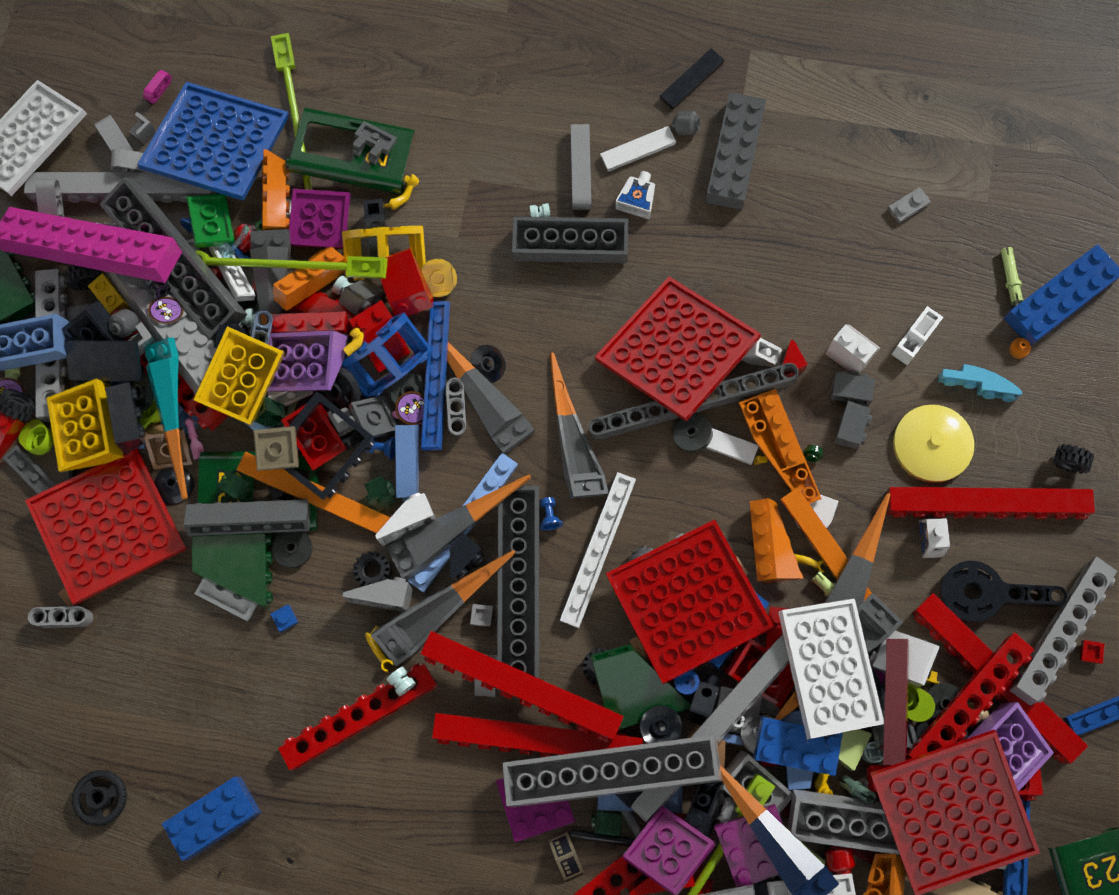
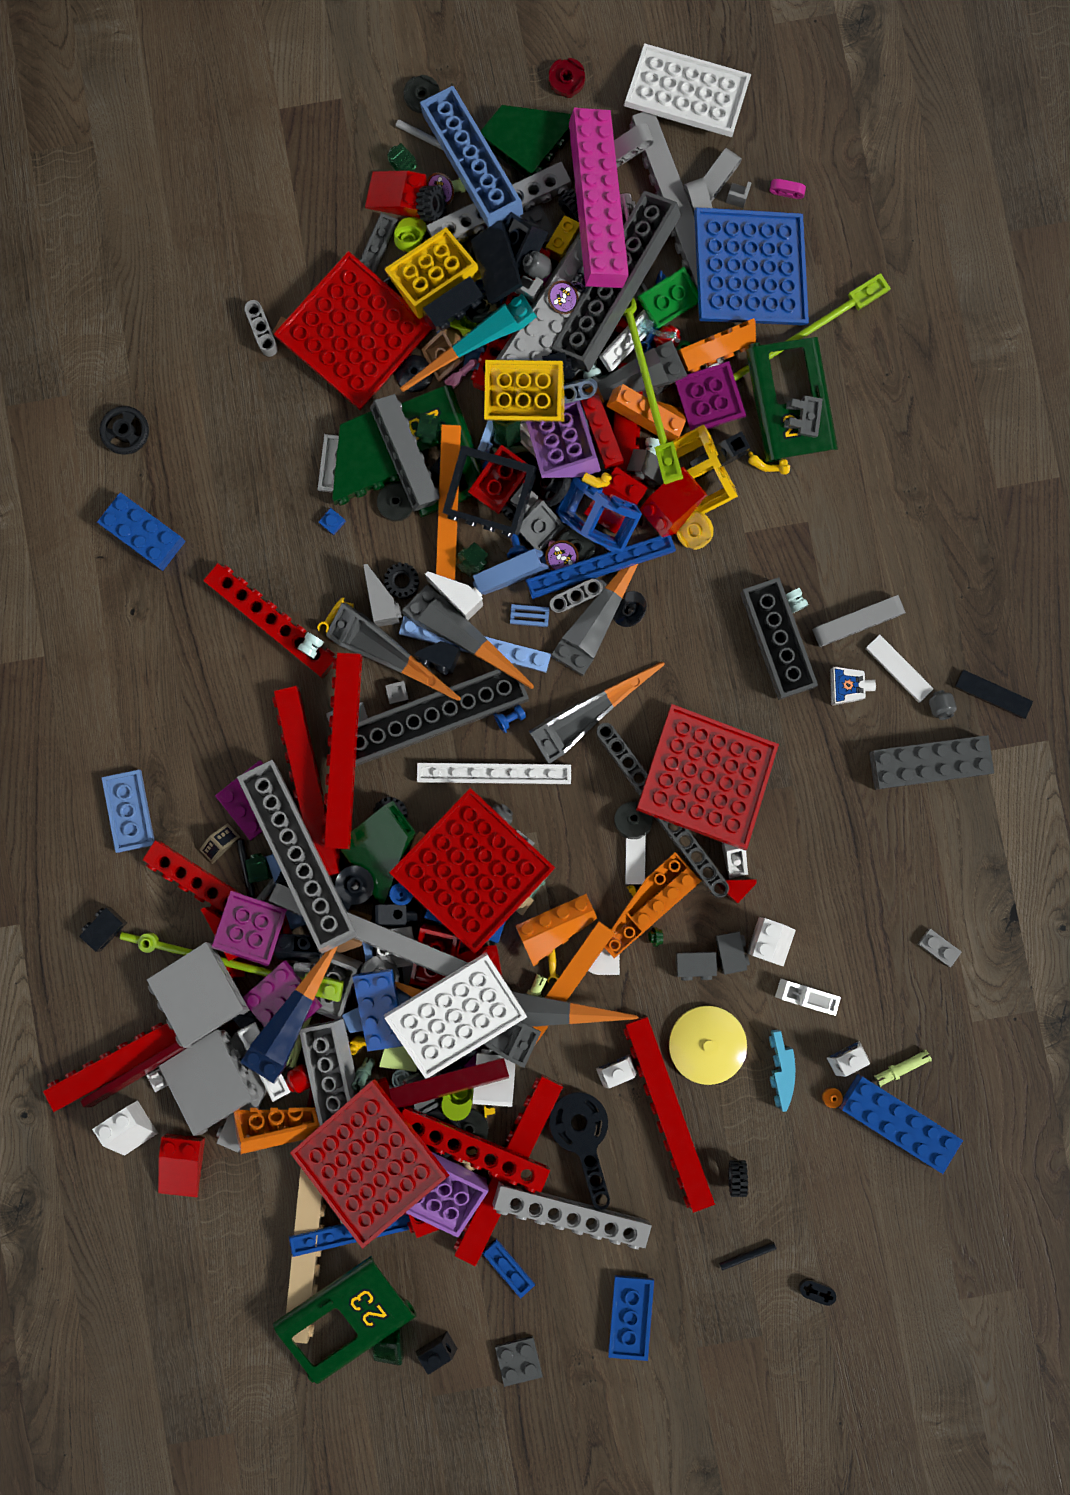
camera: 65 degrees right, 10 degrees up
(276, 448) = (470, 452): dark tan tile -> none
(446, 463) = (529, 615): none -> medium blue tile
(990, 315) = (849, 1060): none -> white torso
(1092, 652) = (563, 1247): red plate -> none

